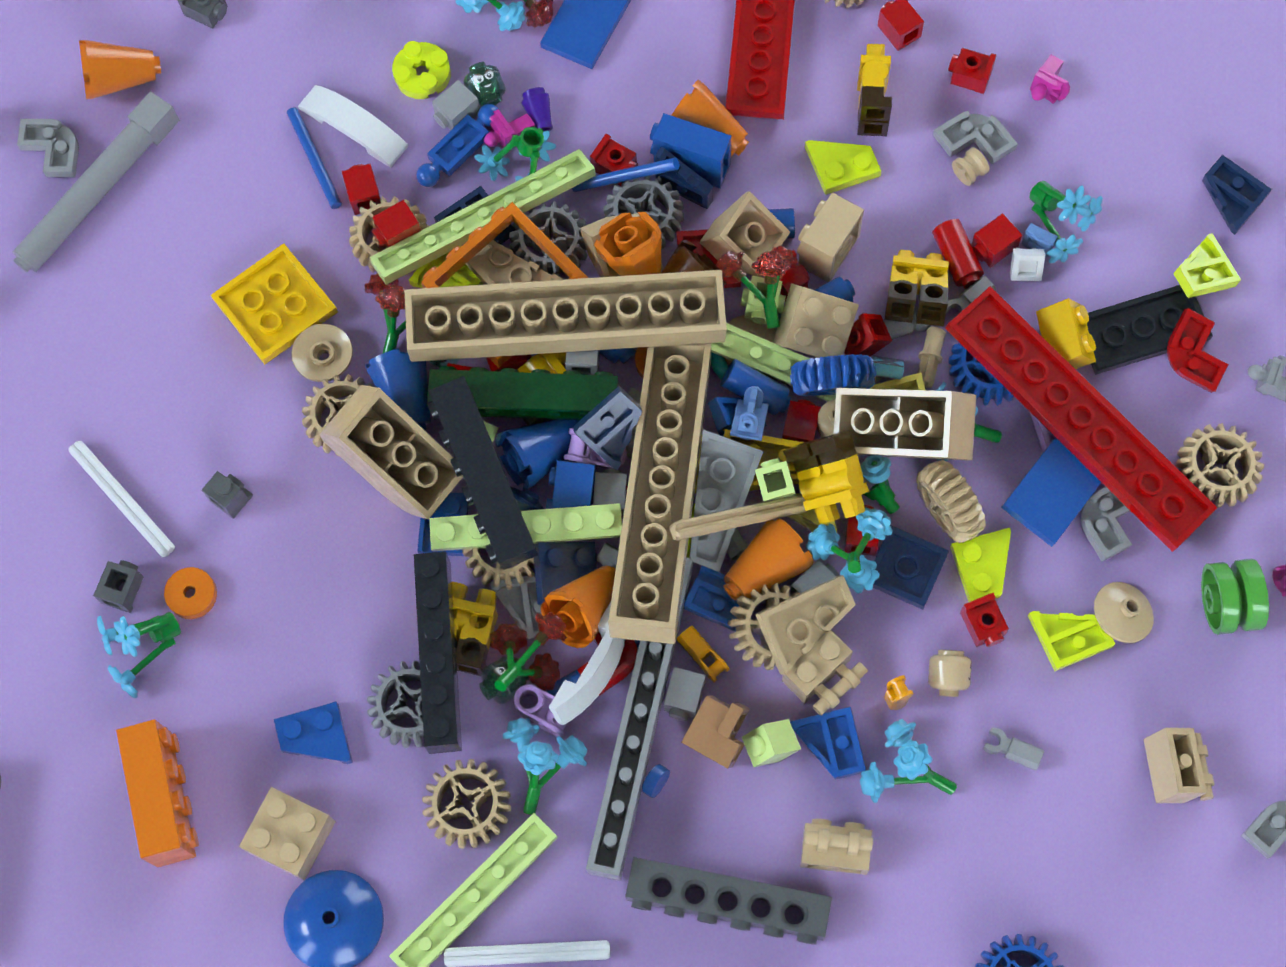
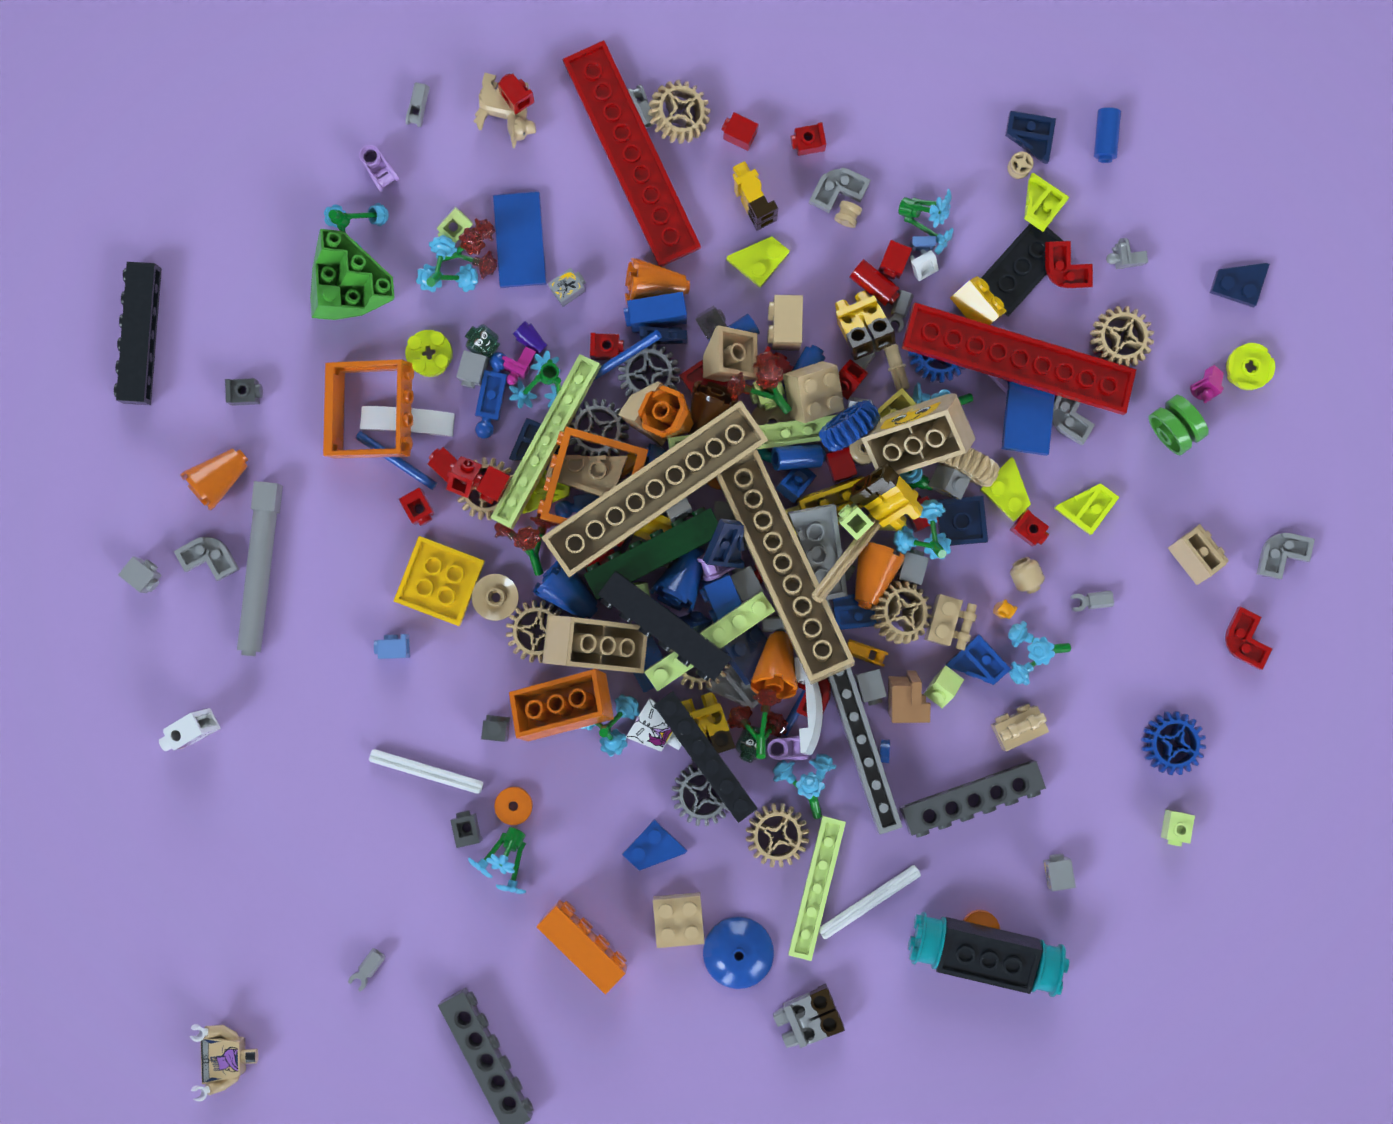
camera: 35 degrees left, 15 degrees up
(177, 344) = (392, 647): none -> medium blue brick
(289, 64) = (334, 408): none -> orange window
(300, 205) = (411, 501): none -> red brick
(313, 502) = (561, 705): none -> orange brick
(341, 544) = (614, 741): none -> medium azure plant
(368, 198) = (464, 476): none -> red brick
(396, 595) = (652, 729): none -> white torso
(612, 79) = (567, 286): none -> light grey brick
(741, 184) = (709, 320): none -> clear smoke brick
(750, 415) = (809, 483): medium blue hinge -> none
(803, 619) = (921, 598): tan wing -> none
(888, 367) = (877, 393): medium azure tile -> none
(917, 511) = (949, 482): none -> light grey brick
(1048, 83) = (866, 122): dark pink piece -> none
(1117, 619) = (1107, 477): tan dish -> none
(1175, 908) = (1240, 640): none -> red plate
(1201, 210) = (1023, 161): none -> tan wheel

